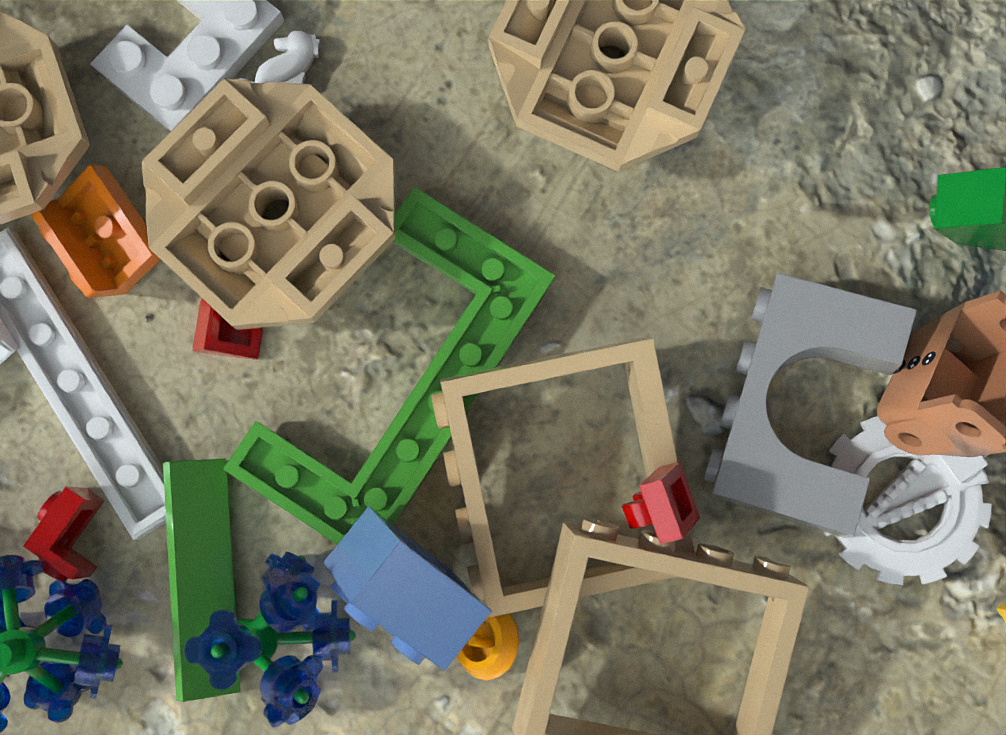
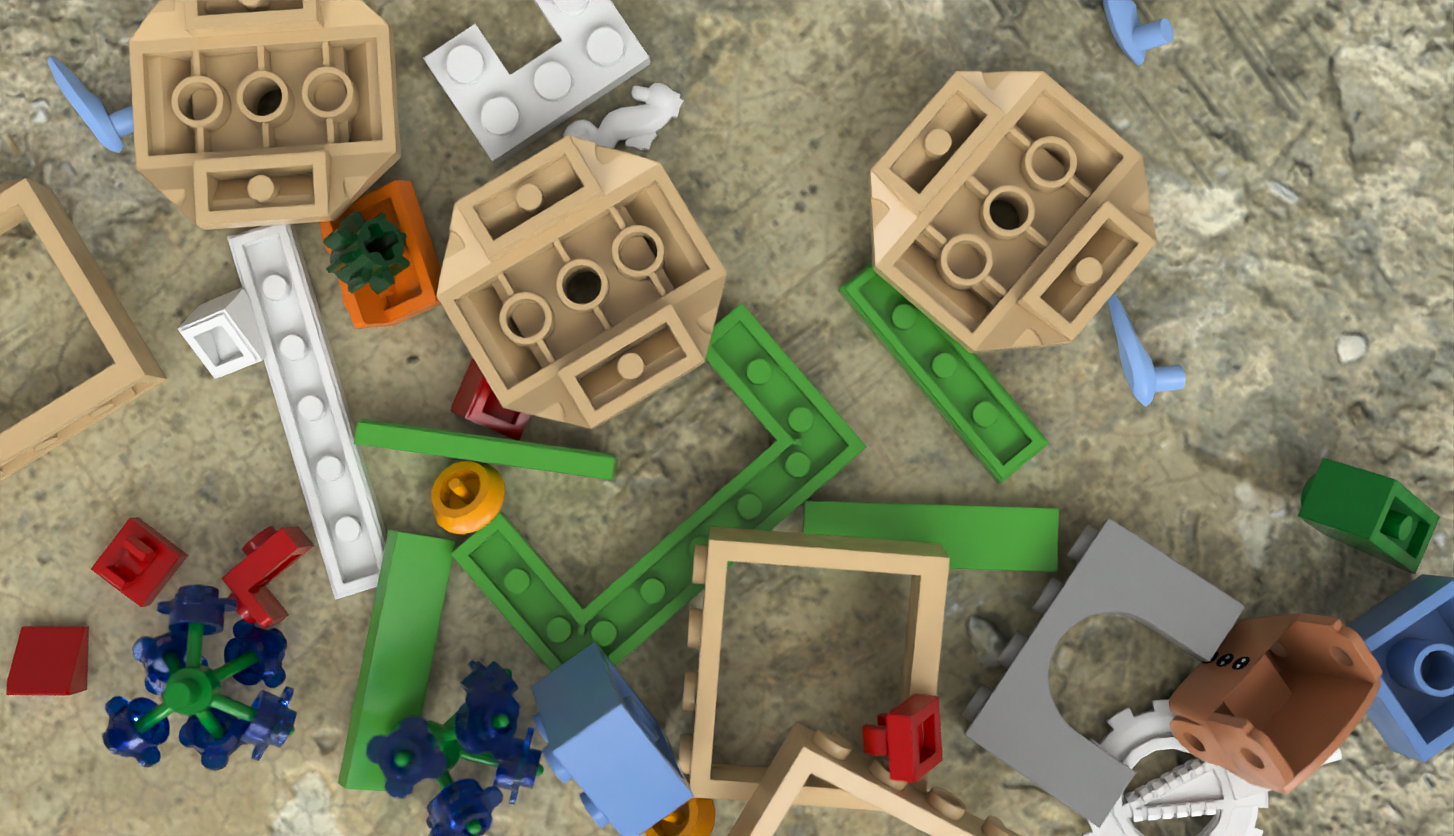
camera: 15 degrees right, 5 degrees up
(77, 227) = (366, 252): none -> dark green gear
(224, 416) = (467, 496): none -> light orange hat
(230, 371) = (486, 449): none -> bright green tile
(603, 200) = (947, 376): none -> bright green tile
(675, 324) = (969, 534): none -> bright green tile
(758, 145) = (1136, 363): none -> light blue bar

